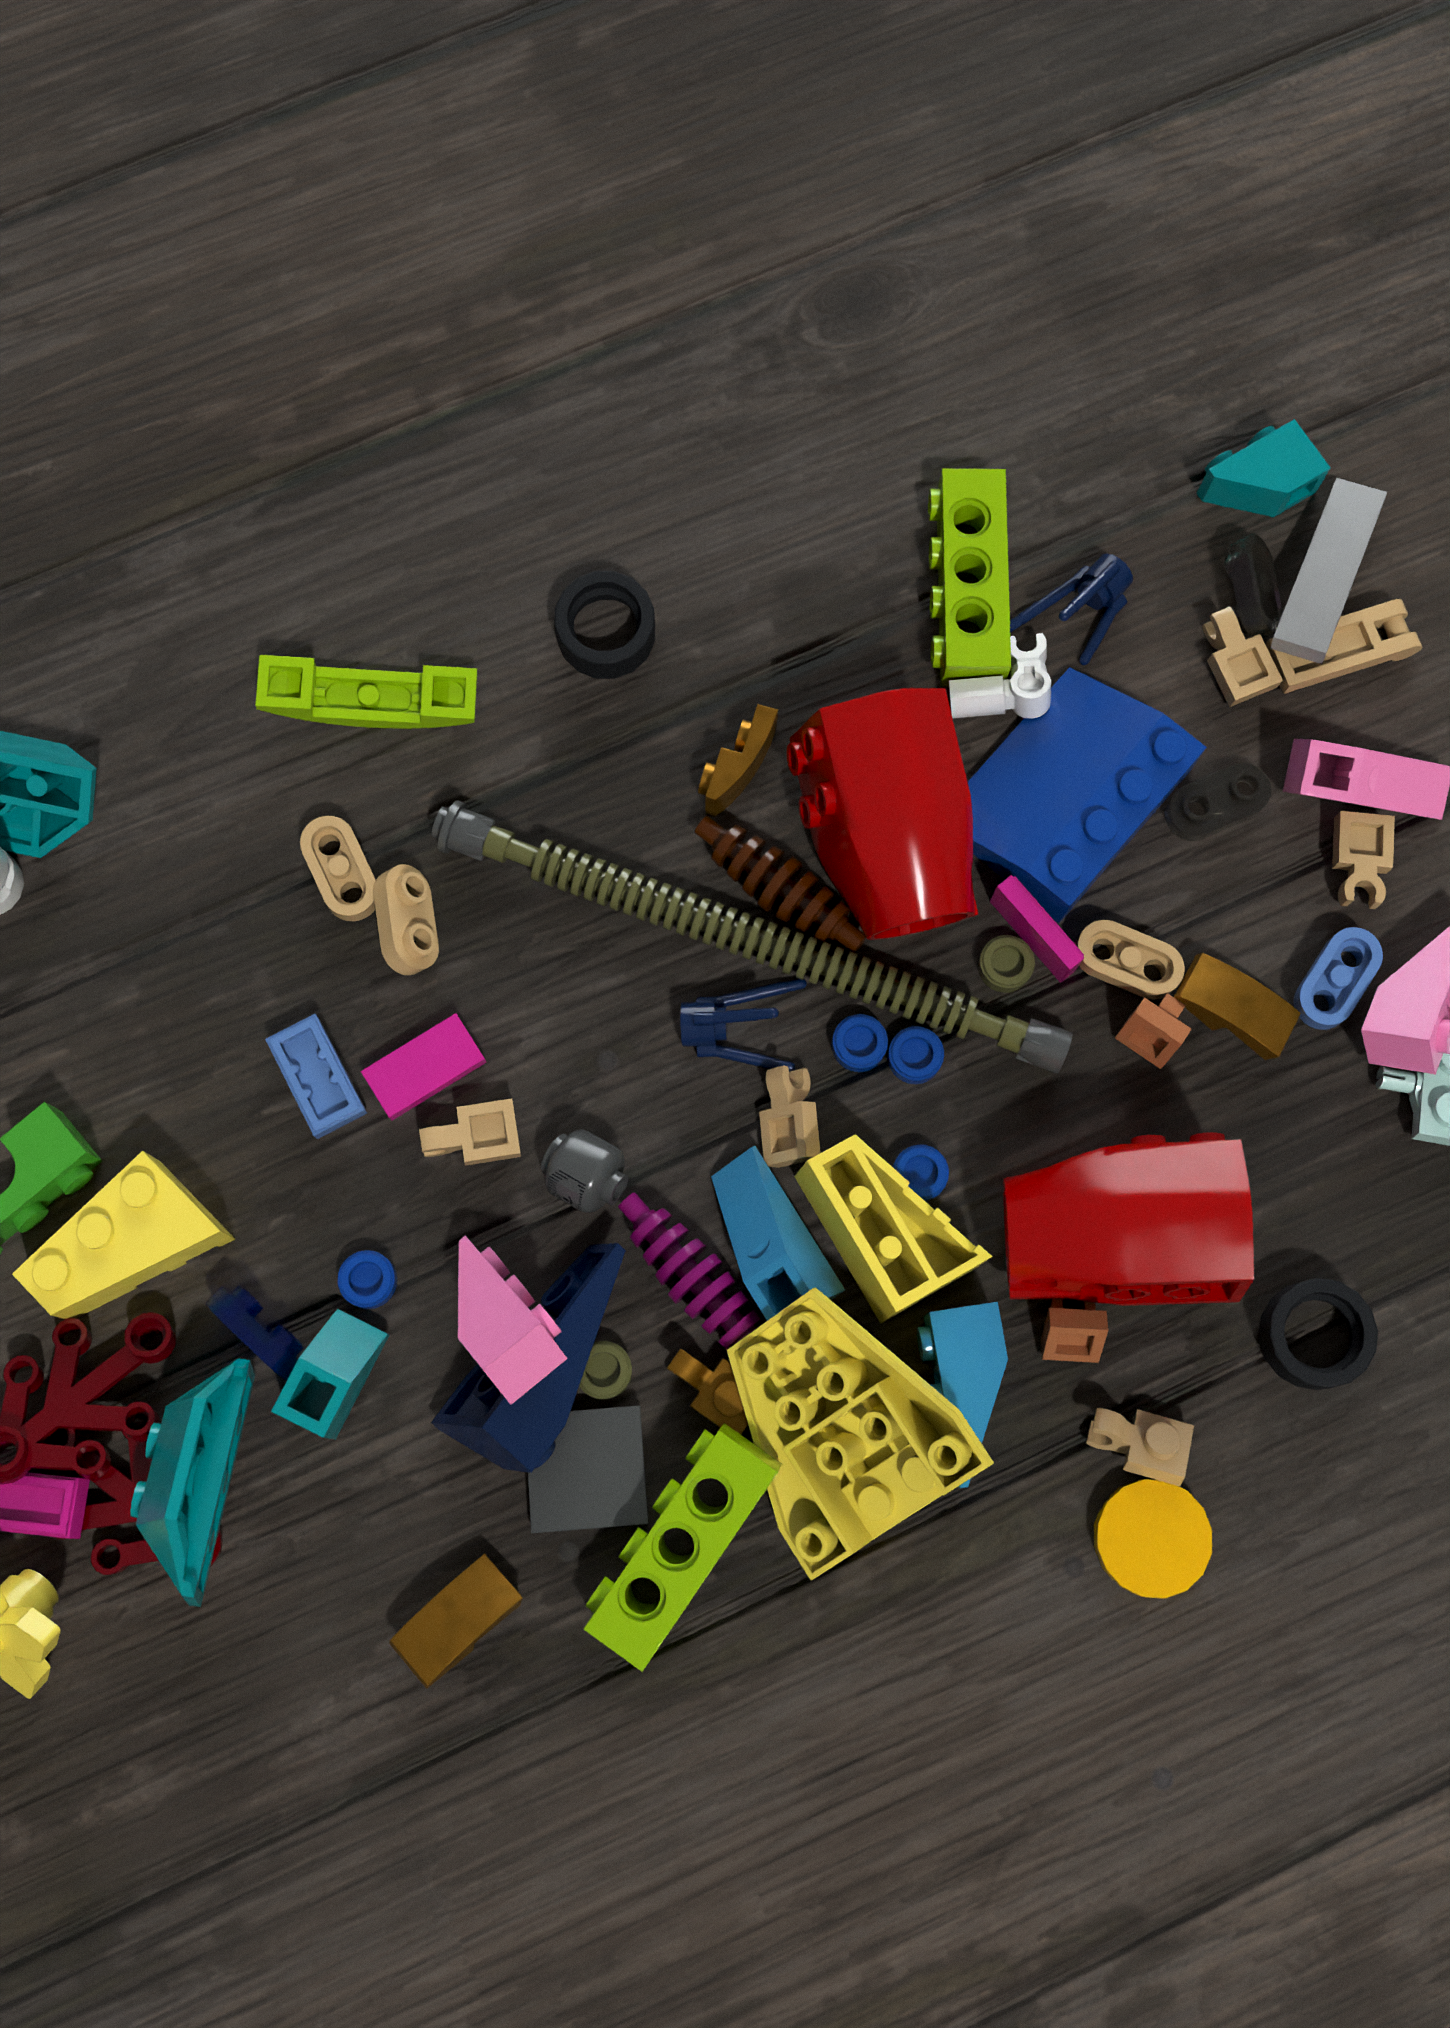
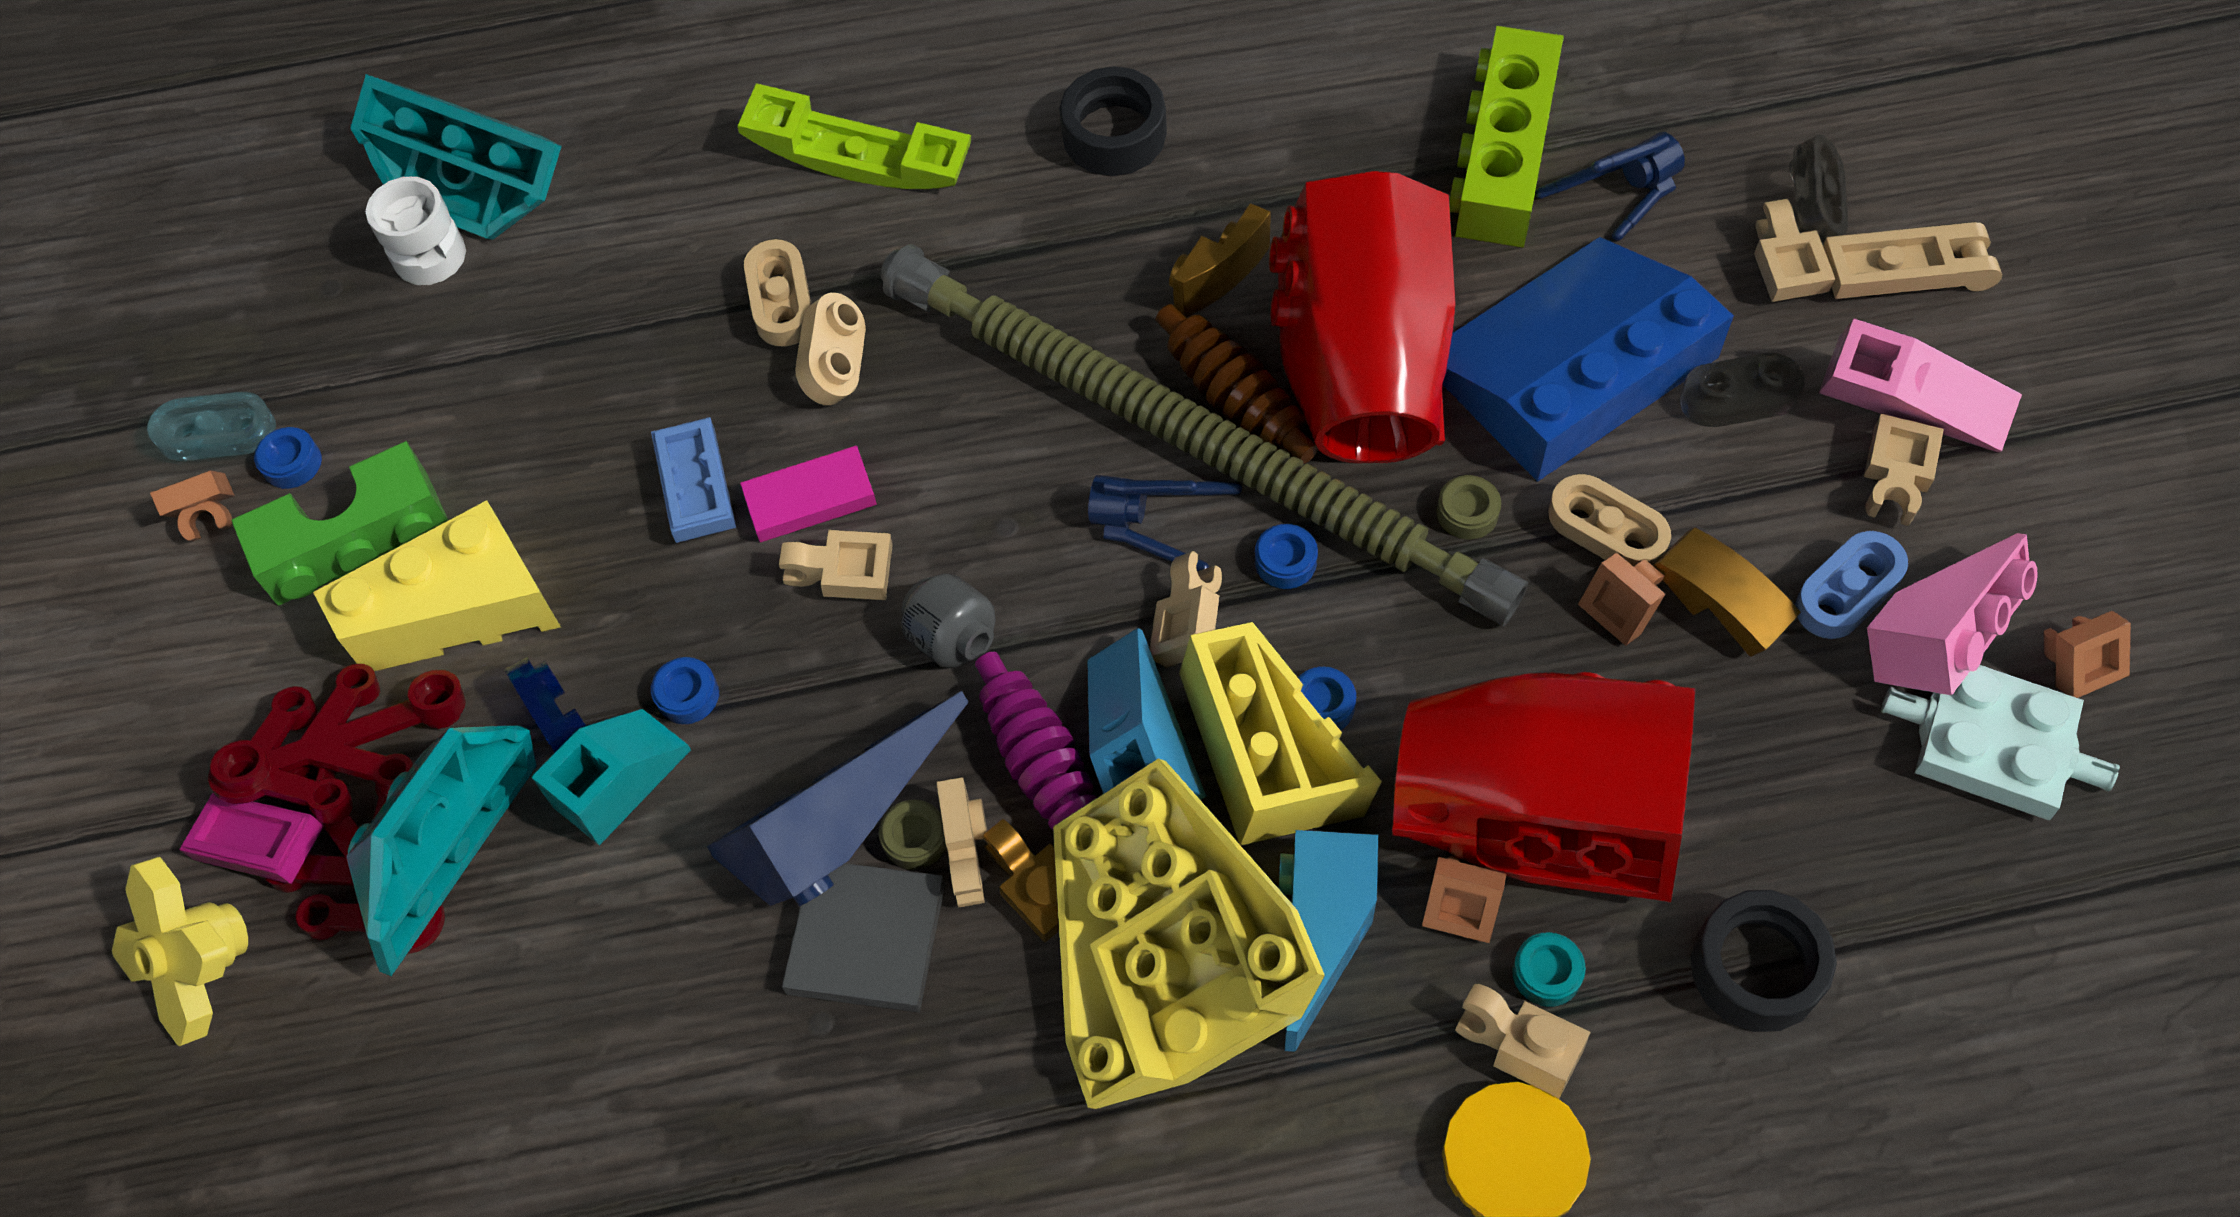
camera: 20 degrees right, 15 degrees down
(455, 1620) = (658, 1063): pearl gold slope -> none
(497, 1326) = (807, 735): bright pink slope -> none
(638, 1628) = (849, 1084): lime brick -> none
(647, 1358) = (962, 826): none -> tan plate
(915, 1055) = (1346, 579): blue tile -> none
(1025, 693) = (1544, 246): white bar -> none
(1037, 928) = (1510, 472): dark pink tile -> none
(1149, 1374) = (1548, 969): none -> teal tile
(1268, 474) = (1849, 89): teal slope -> none
(1328, 571) = (1904, 185): light grey tile -> none

